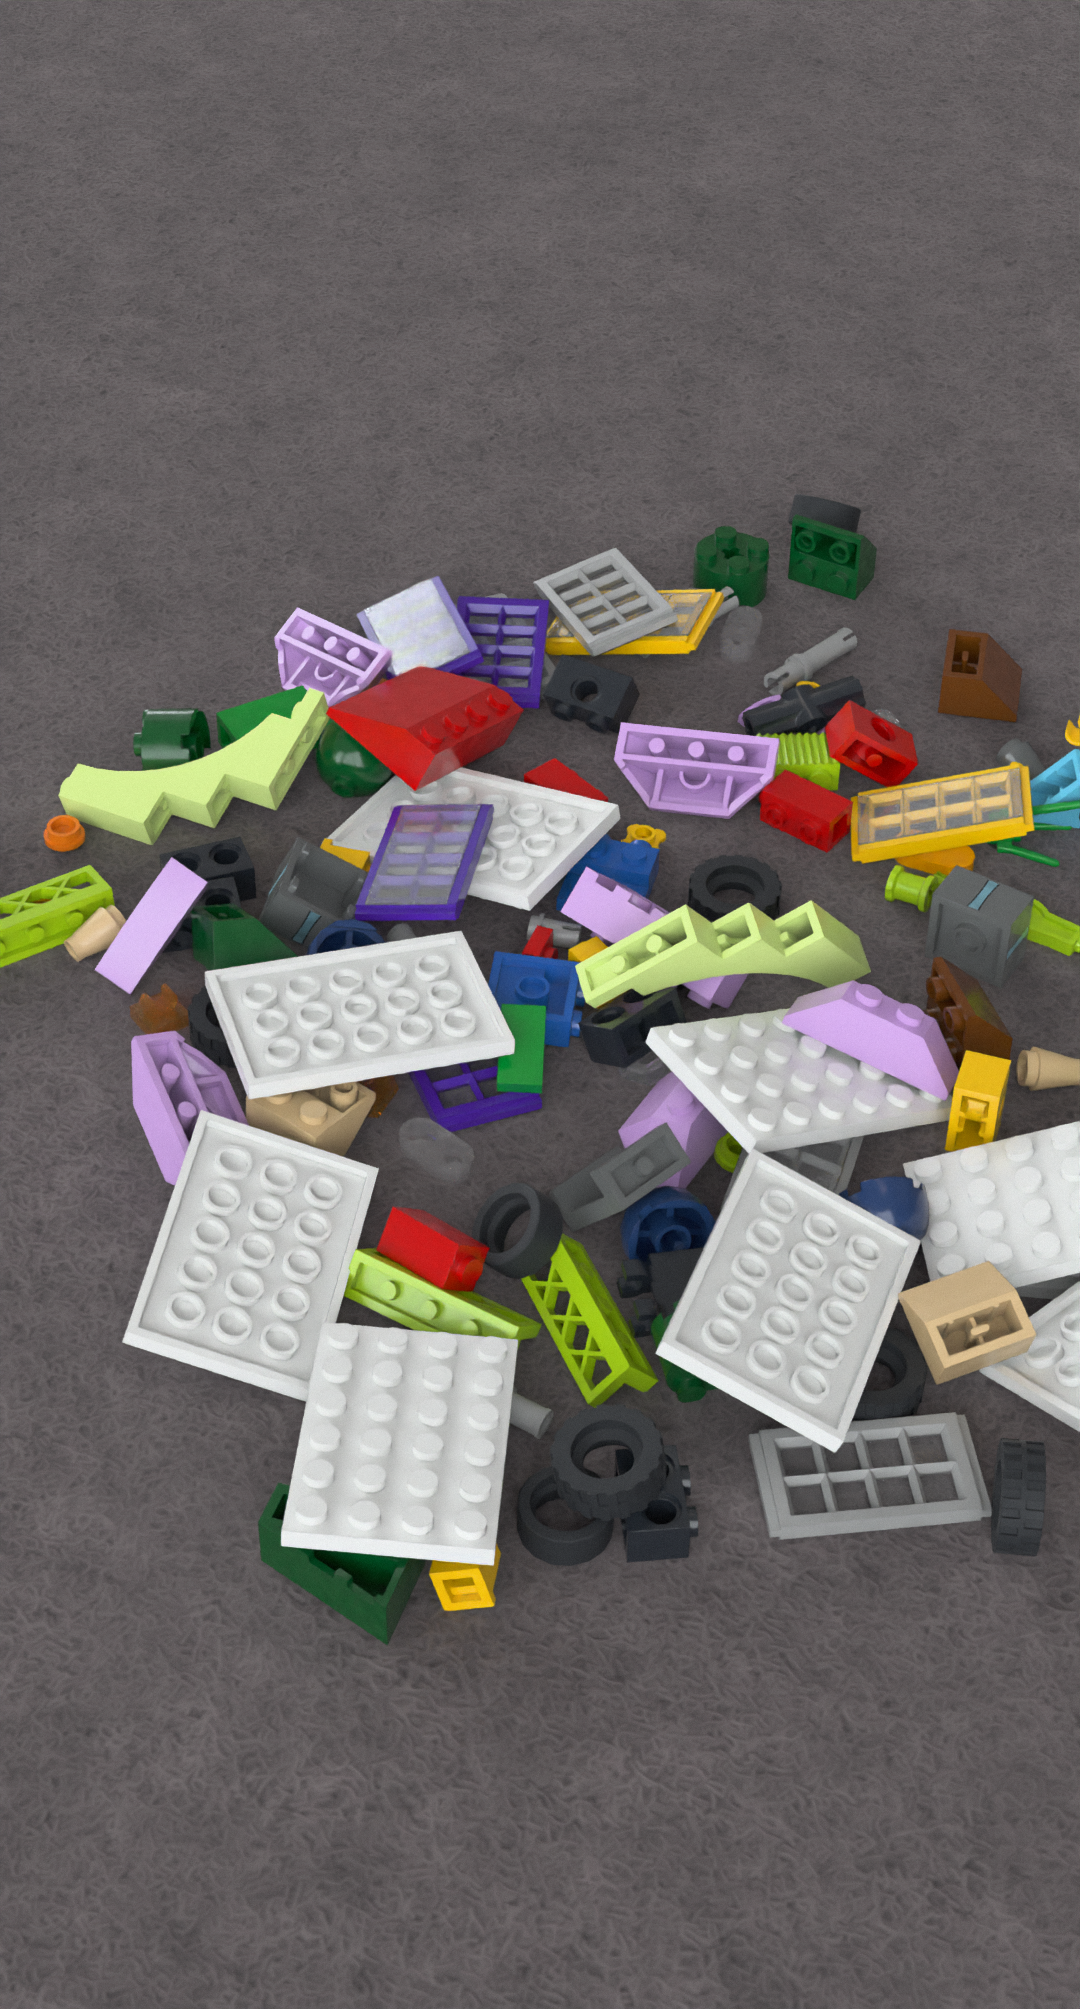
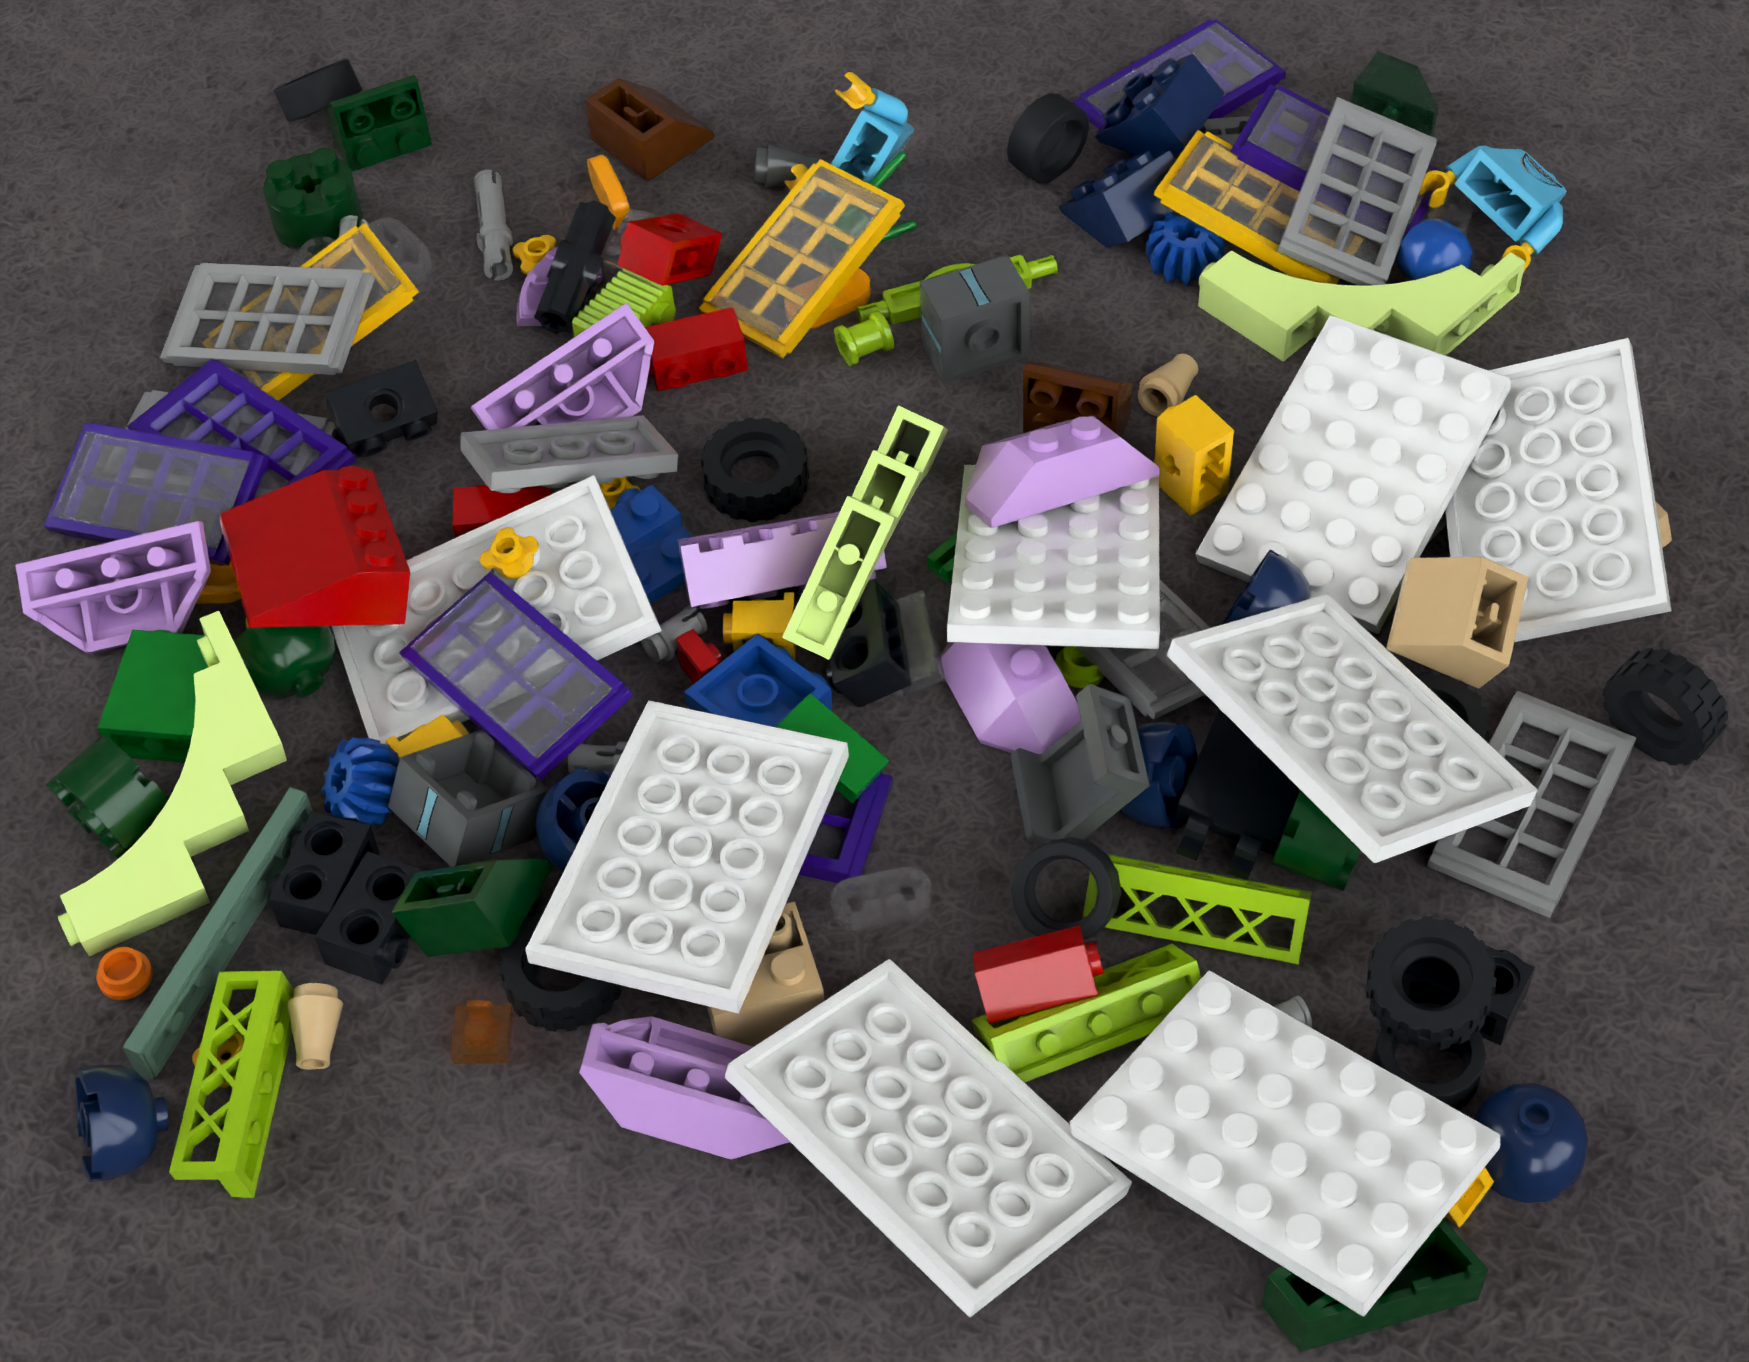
camera: 50 degrees left, 10 degrees up
(116, 855) = (216, 940): none -> sand green tile
(151, 926) = (386, 962): lavender slope -> none
(275, 846) = (360, 781): none -> blue gear
(515, 804) = (510, 554): none -> yellow plate
(545, 1610) = (1539, 1142): none -> dark blue cylinder
(638, 791) = (568, 453): none -> light grey plate
(902, 692) = (608, 187): none -> light orange tile

